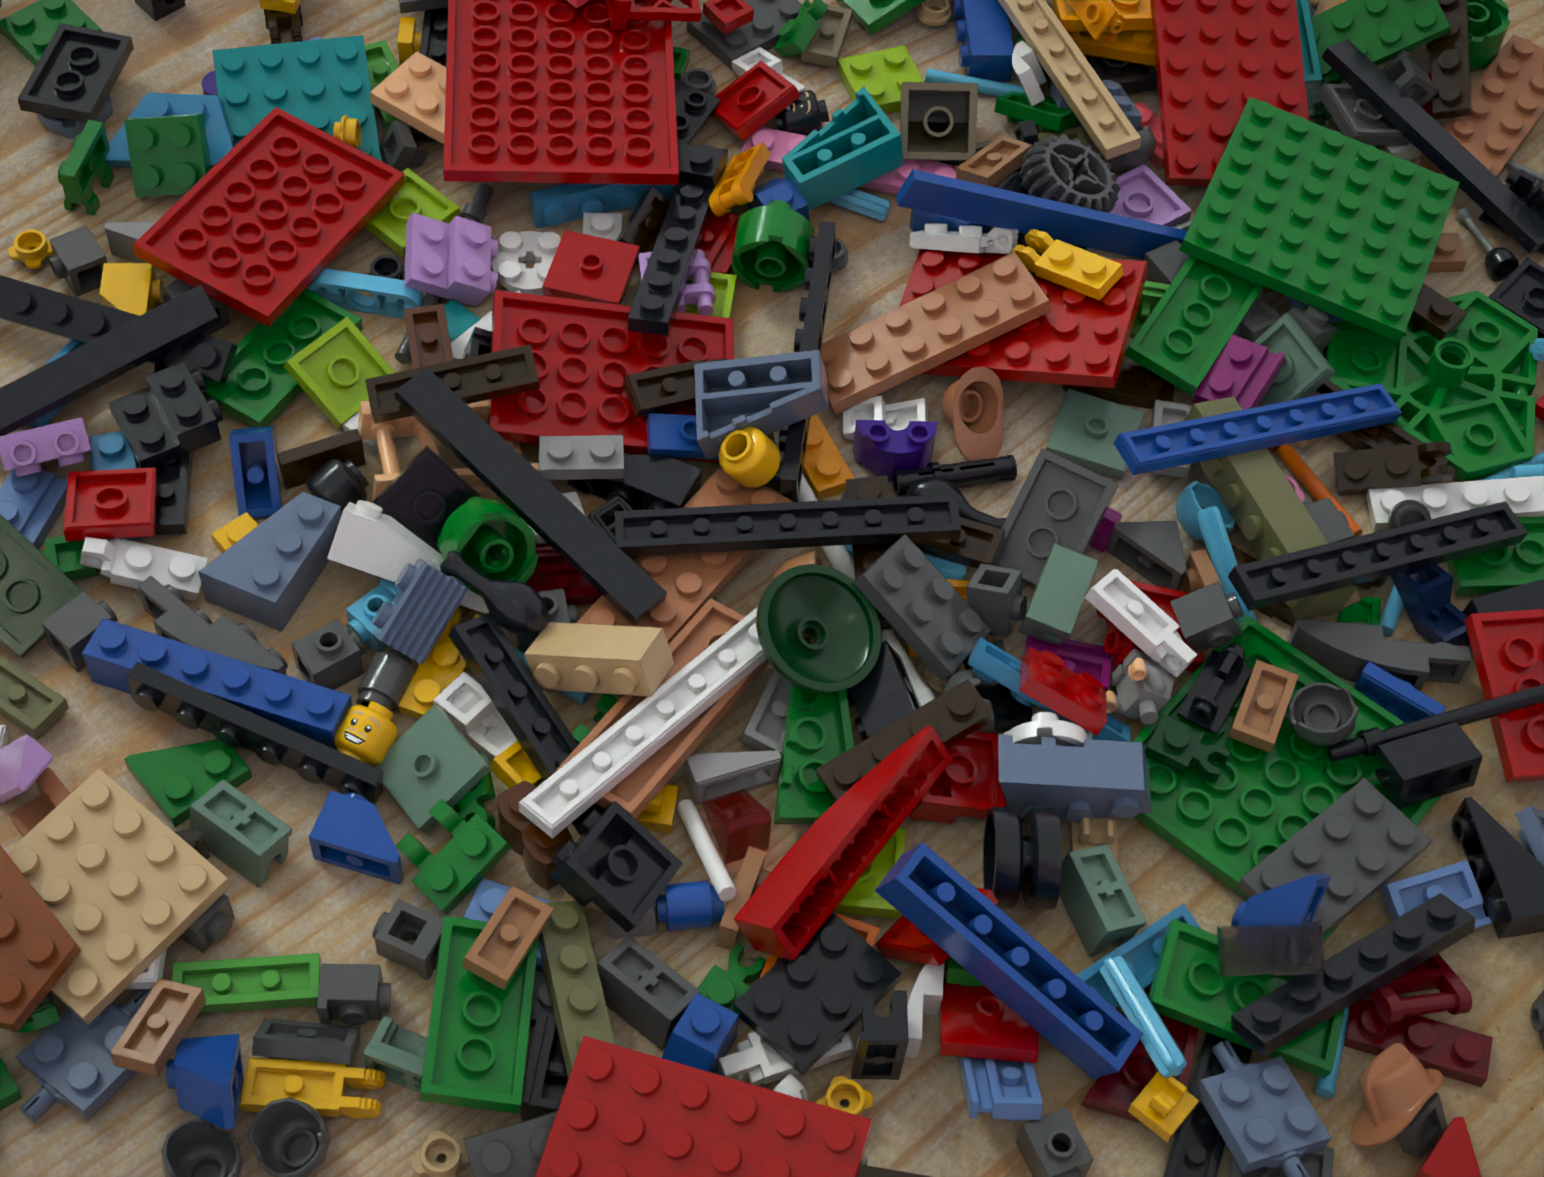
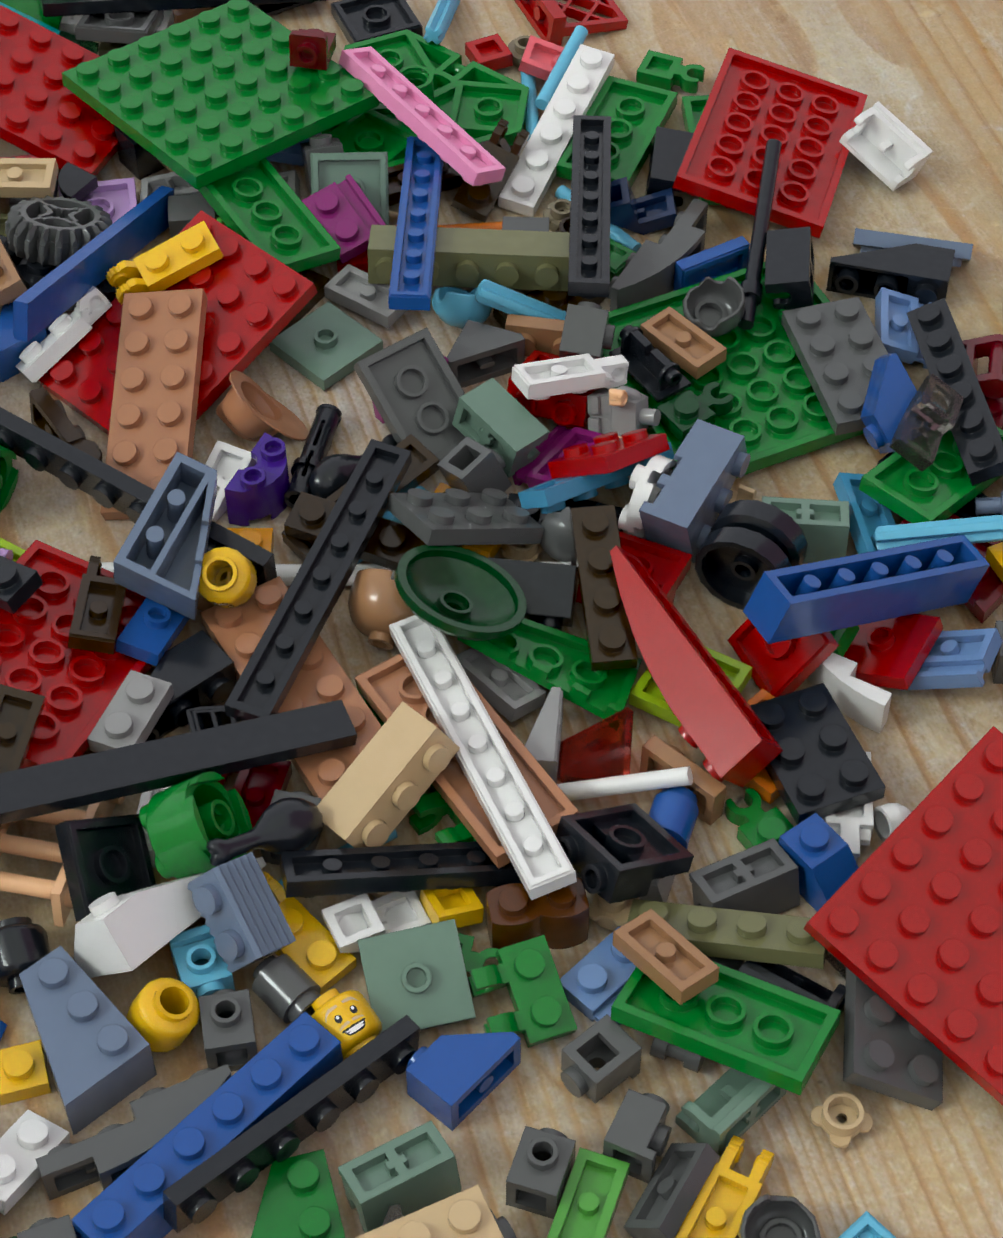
camera: 60 degrees left, 5 degrees down
(287, 928) = (540, 1171): none -> dark grey brick
(316, 589) = (164, 1013): none -> yellow head
(845, 1089) = (909, 773): yellow plate -> none
(865, 293) = (52, 418): none -> dark brown hinge
(883, 1041) = (881, 716): black hinge -> none
(1147, 172) = (76, 182): none -> black tile
(1399, 378) = (422, 116): none -> bright pink plate
(1407, 513) = (550, 182): dark grey plate -> none
(1412, 256) = (311, 48): none -> dark red bracket
(1499, 260) = (318, 19): black hinge -> none

